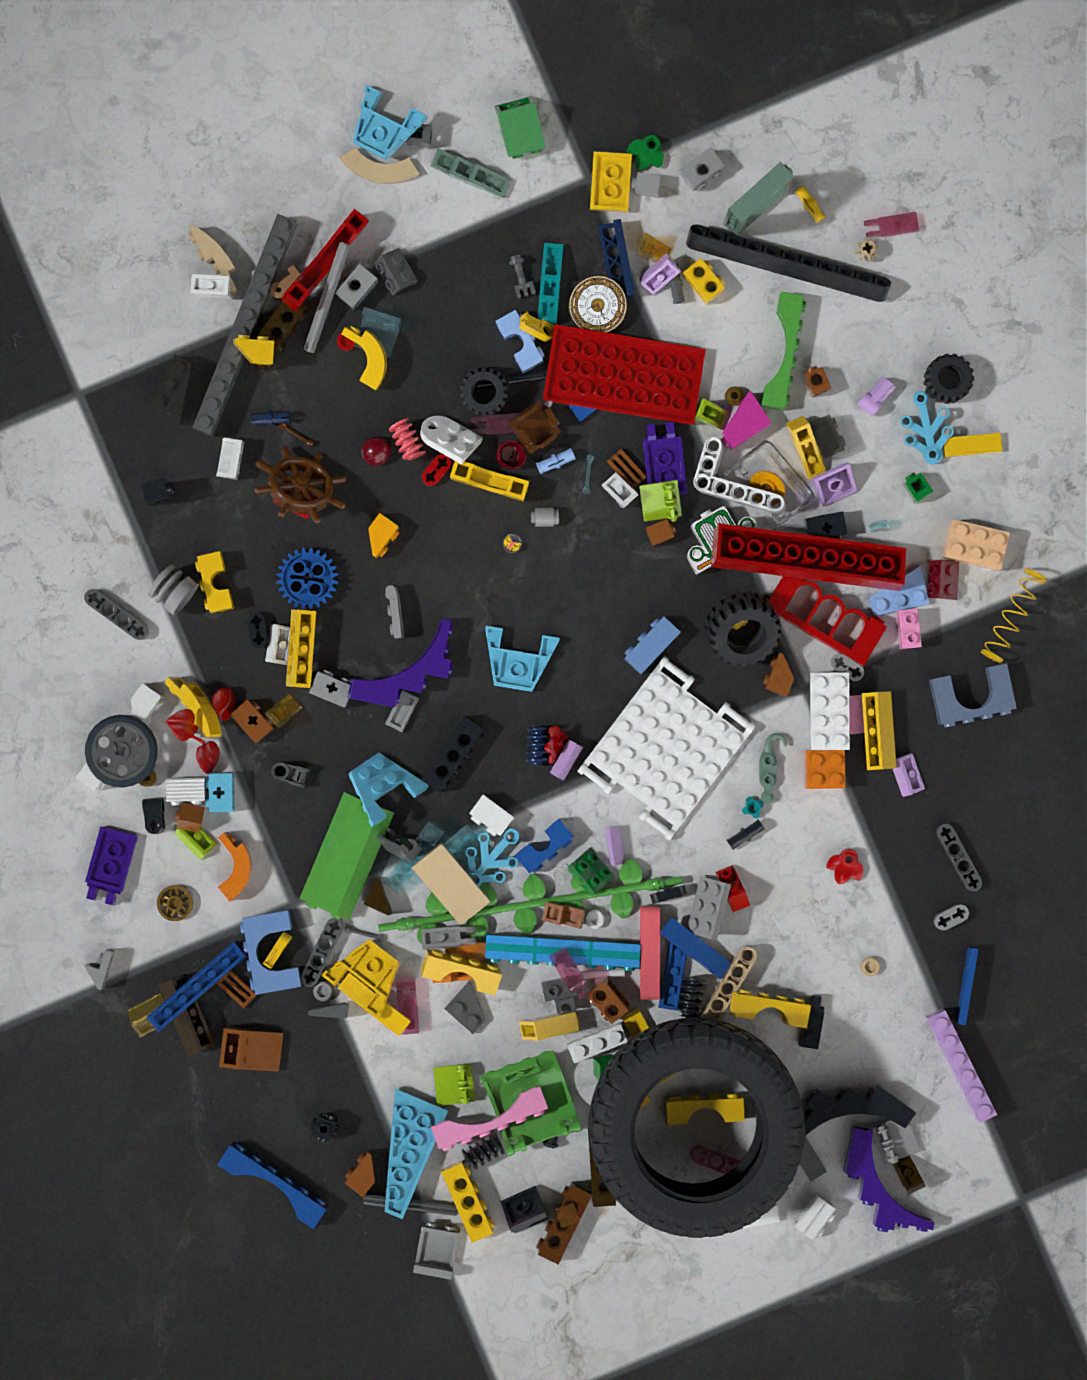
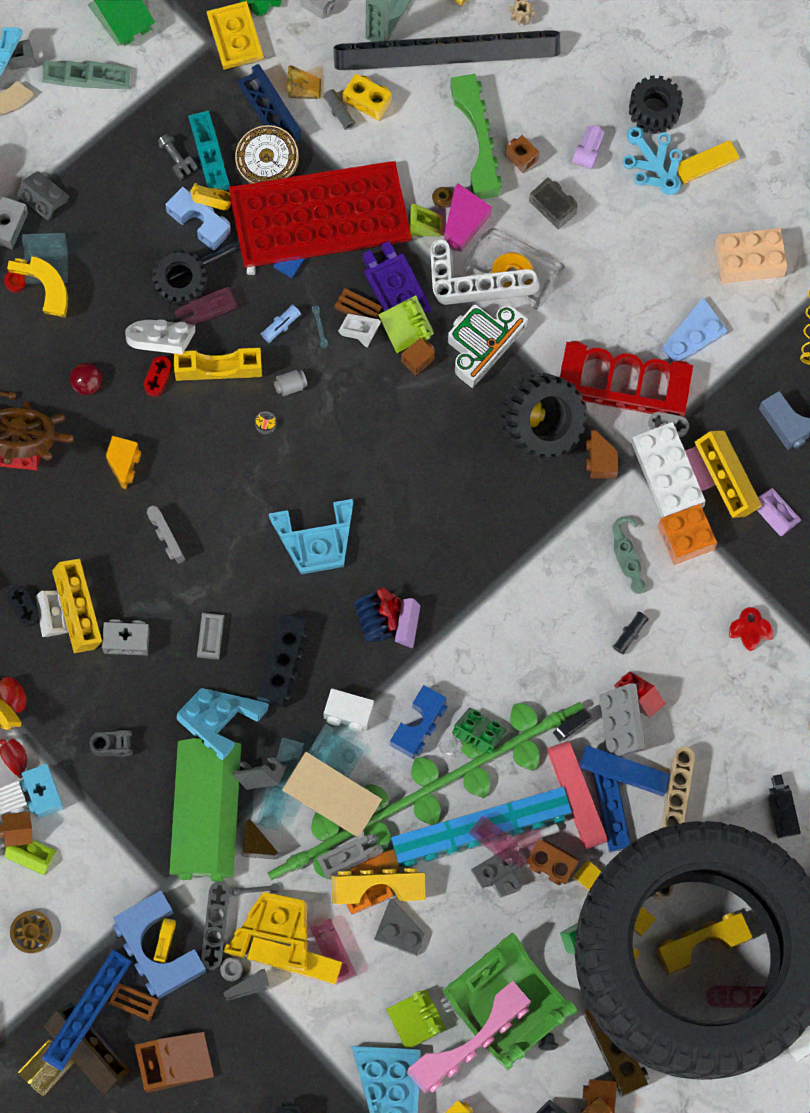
camera: 25 degrees left, 15 degrees down
(242, 717) = (56, 712): dark orange brick -> none
(242, 867) = (95, 875): orange arch -> none
(283, 711) = (80, 681): clear yellow slope -> none
(309, 561) = (55, 514): blue gear -> none
(406, 440) = (113, 355): coral piece -> none
(431, 663) = (185, 615): dark purple arch -> none
(483, 1152) = (476, 1080): black piece -> none
(488, 860) = (363, 758): medium azure plant -> none
(511, 454) = (231, 332): dark red hair -> none
(535, 426) = (246, 294): reddish brown panel -> none
(549, 1026) = (496, 913): yellow slope -> none
(563, 914) = (467, 786): dark orange slope -> none
(594, 919) = (503, 782): white tile -> none
(597, 1043) = (556, 912): white arch -> none
(615, 845) = (494, 695): lavender slope -> none
(646, 184) = (272, 25): light grey brick -> none
(651, 644) = (453, 472): medium blue brick -> none
(659, 274) = (319, 105): lavender slope -> none
(666, 748) = (510, 574): white plate -> none
(691, 997) = (639, 819): black piece -> none
(747, 1006) = (756, 801): yellow arch -> none
(751, 802) = (631, 598): teal plate -> none
(806, 446) = (536, 220): yellow slope -> none
(808, 557) = (583, 321): red brick -> none
(833, 520) = (595, 283): black brick -> none
(834, 484) = (580, 245): lavender slope -> none
(878, 526) = (643, 272): clear light blue tile -> none
(908, 628) = (716, 362): bright pink brick -> none
(924, 487) = (670, 214): green brick -> none
(943, 579) = (731, 302): dark red bracket -> none

